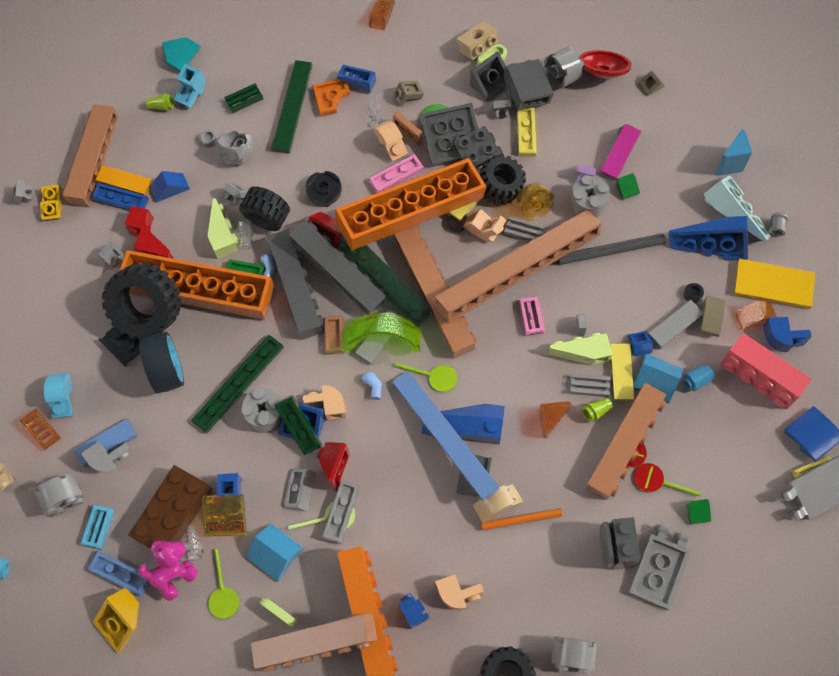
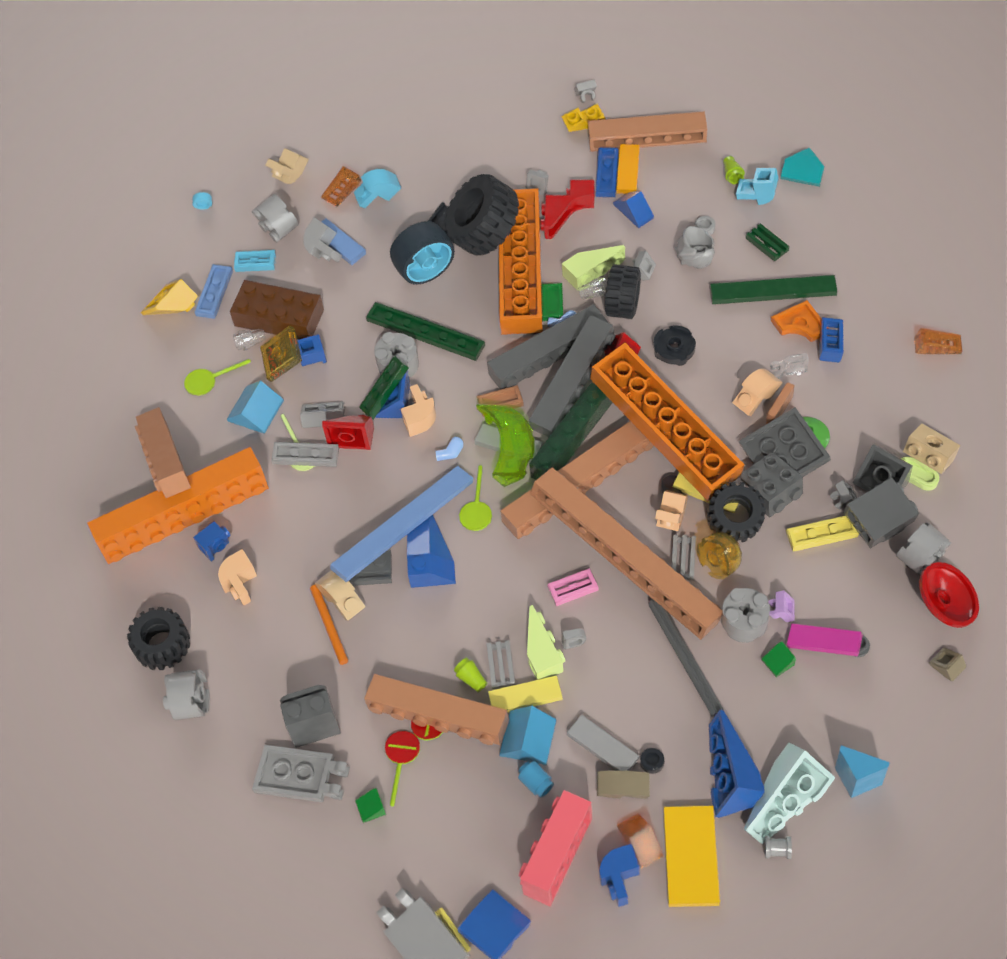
camera: 80 degrees right, 10 degrees down
(167, 556) = (216, 319): dark pink animal -> none
(279, 612) = (194, 425): yellowish green tile -> none
(396, 174) = (717, 411): bright pink tile -> none
(408, 90) = (832, 395): dark tan bracket -> none
(551, 415) = (449, 628): clear orange slope -> none
(640, 343) = (567, 710): blue slope -> none

